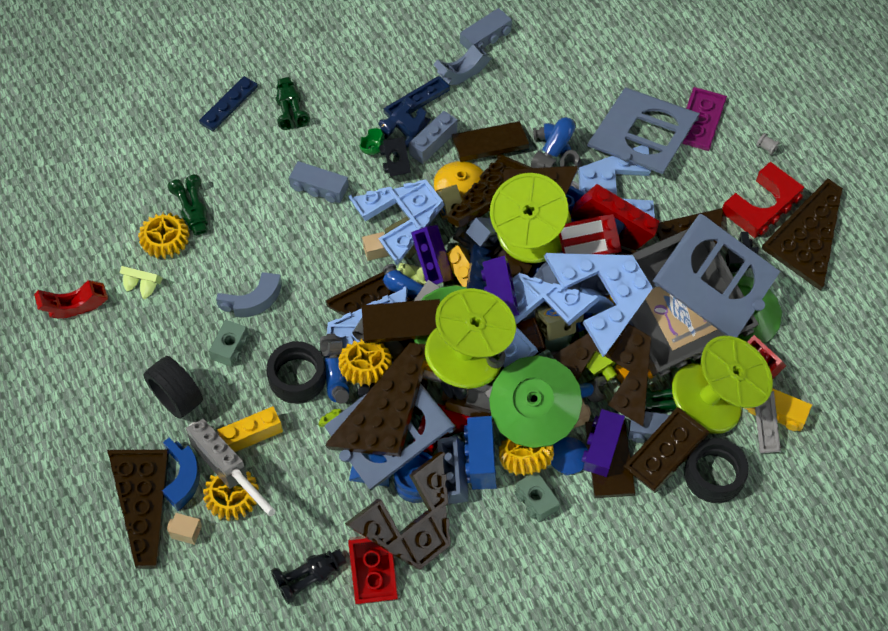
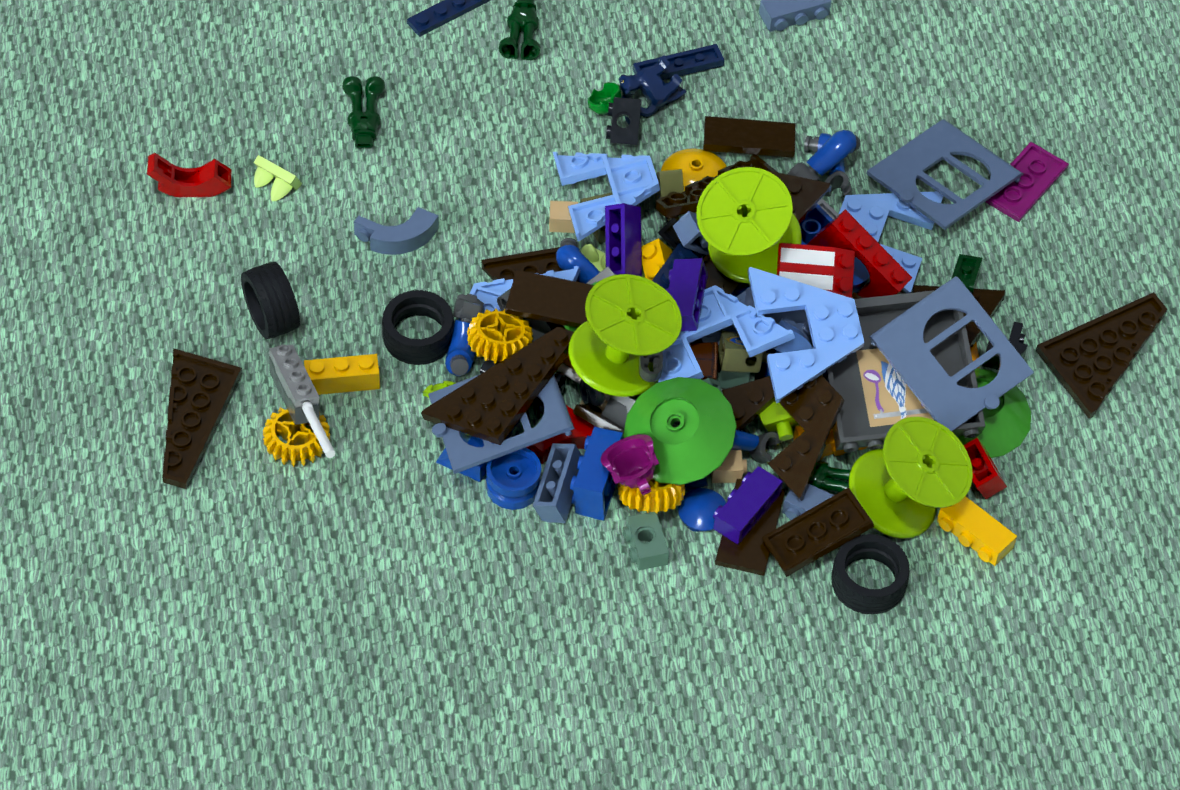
camera: 15 degrees right, 5 degrees down
(170, 242) = (319, 136): yellow gear -> none
(184, 528) = (231, 455): tan brick -> none
(188, 478) = (253, 405): blue arch -> none
(229, 333) = (352, 275): sand green brick -> none
(318, 182) = (523, 127): sand blue brick -> none
(318, 566) = (366, 541): black piece -> none
(371, 571) = (428, 558): red slope -> none
(423, 537) = (497, 541): dark brown wing -> none
(433, 137) = (680, 112): sand blue brick -> none
(467, 66) = (749, 44): sand blue arch -> none
(509, 440) = (631, 462): none -> magenta helmet
(689, 203) = (968, 270): none -> dark green hinge
(756, 219) = (1043, 316): red arch -> none
(767, 426) = (953, 540): light grey tile -> none
(768, 143) = (1095, 232): light grey bush -> none

